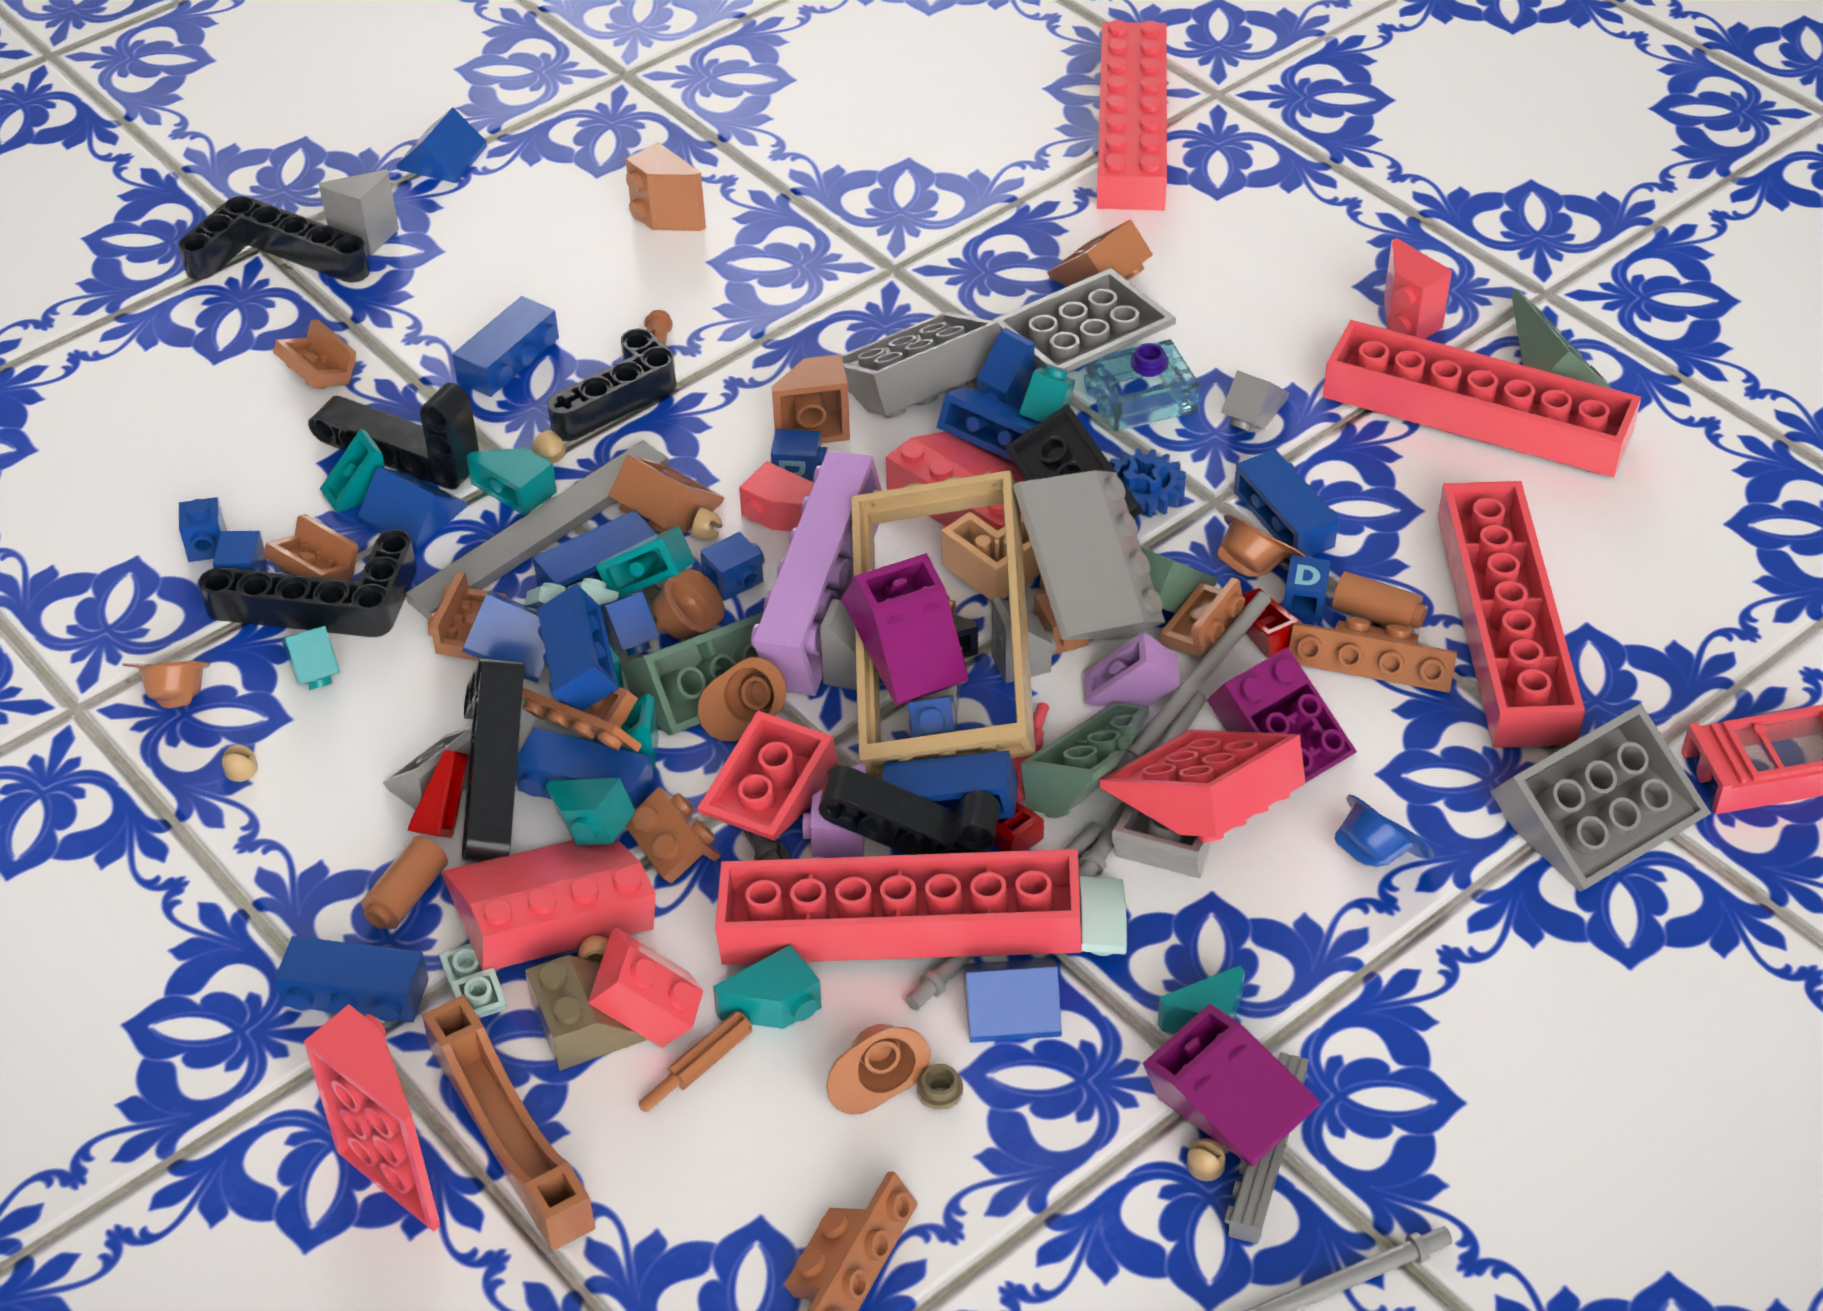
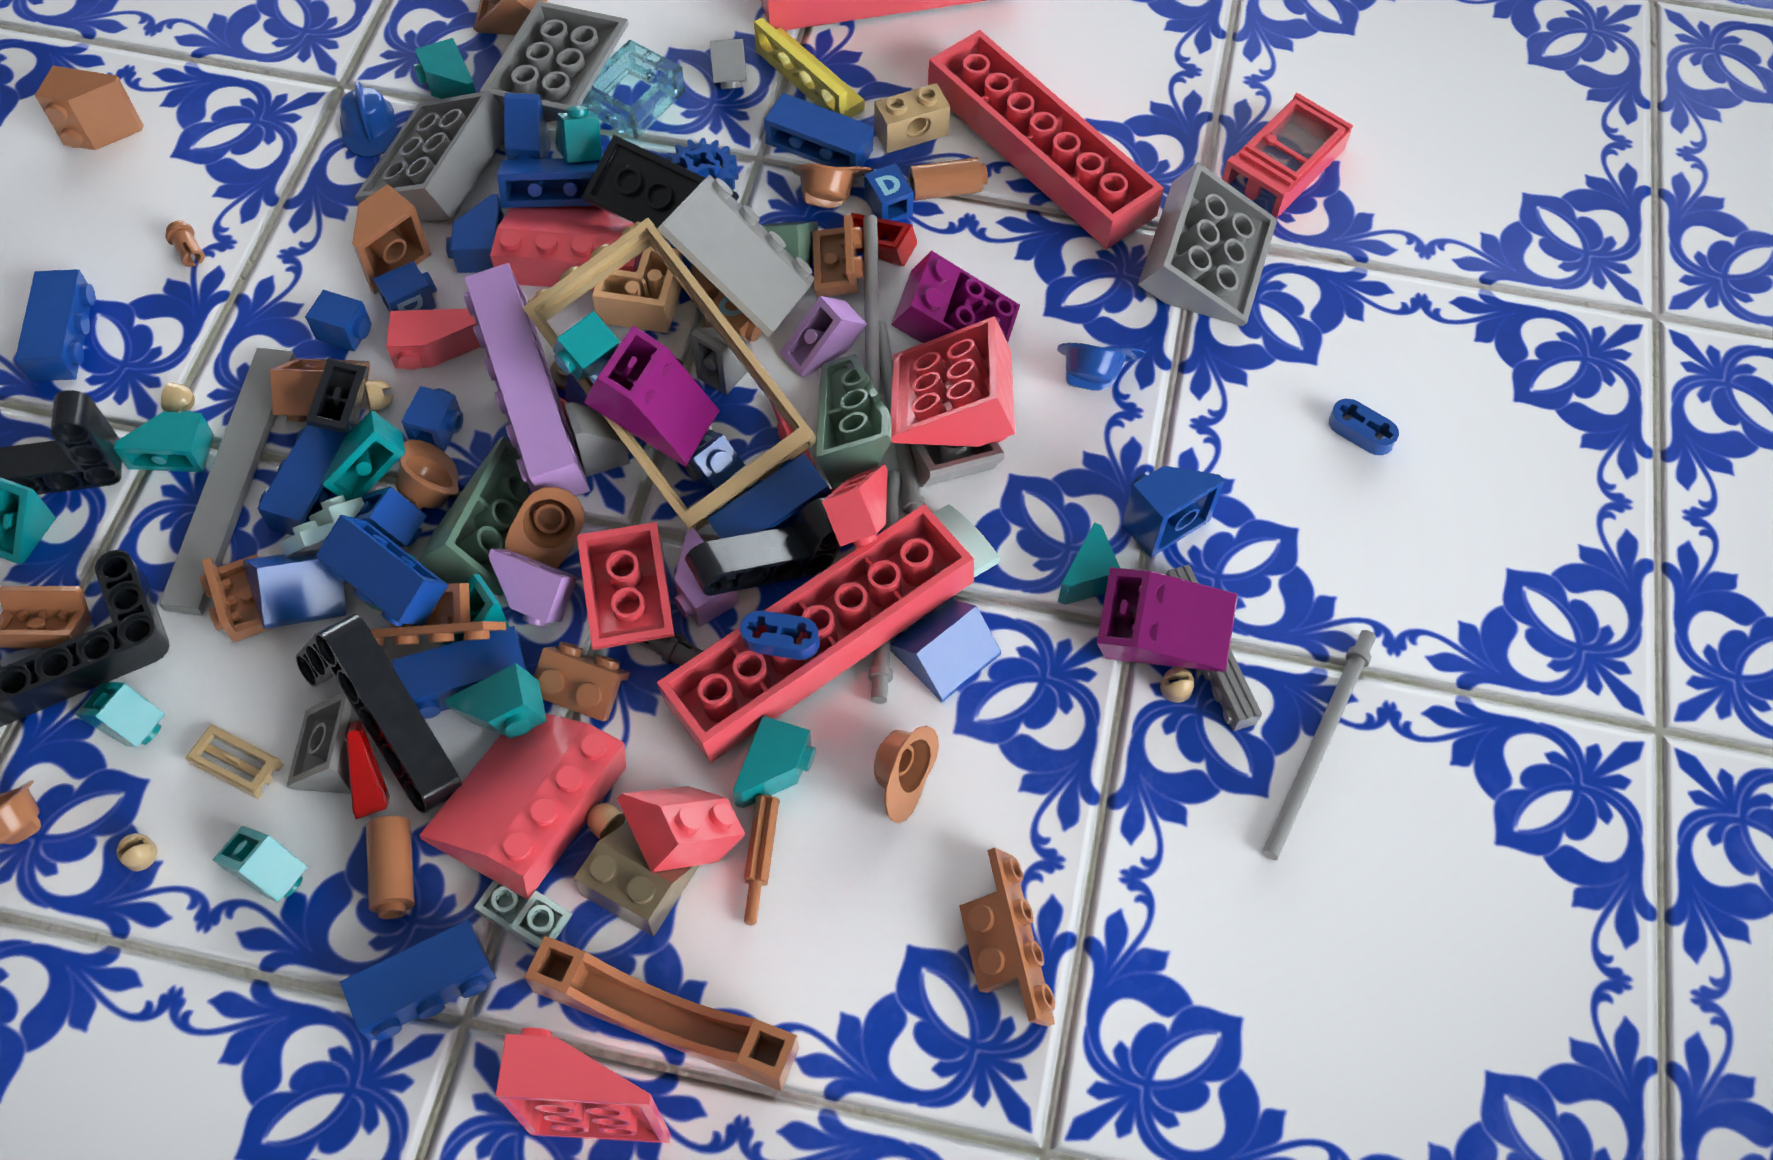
camera: 40 degrees left, 15 degrees up
(315, 825) = (261, 863): none -> slope
(370, 762) = (260, 776): none -> tan tile
(407, 504) = (88, 523): blue slope -> none
(616, 391) = (205, 297): black beam -> none
(661, 502) = (338, 397): none -> black slope
(694, 737) = (532, 586): none -> lavender slope
(722, 449) = (338, 320): none -> blue brick
(845, 885) = (780, 634): none -> blue beam
(869, 546) = (585, 347): none -> teal slope
(887, 305) = (367, 121): none -> blue piece
(892, 431) = (474, 236): none -> blue slope
(939, 1077) = (957, 743): dark tan plate -> none
(986, 290) = (443, 70): none -> teal slope
(1012, 815) = (859, 507): none -> coral slope
(1149, 360) = (633, 65): dark purple plate -> none
(1327, 447) = (805, 70): none -> light yellow fence
(1331, 995) = (1170, 506): none -> blue slope
(1373, 653) = (973, 220): nougat bracket -> none
(1390, 532) = (911, 118): none -> tan brick
(1616, 1052) = (1363, 426): none -> blue beam

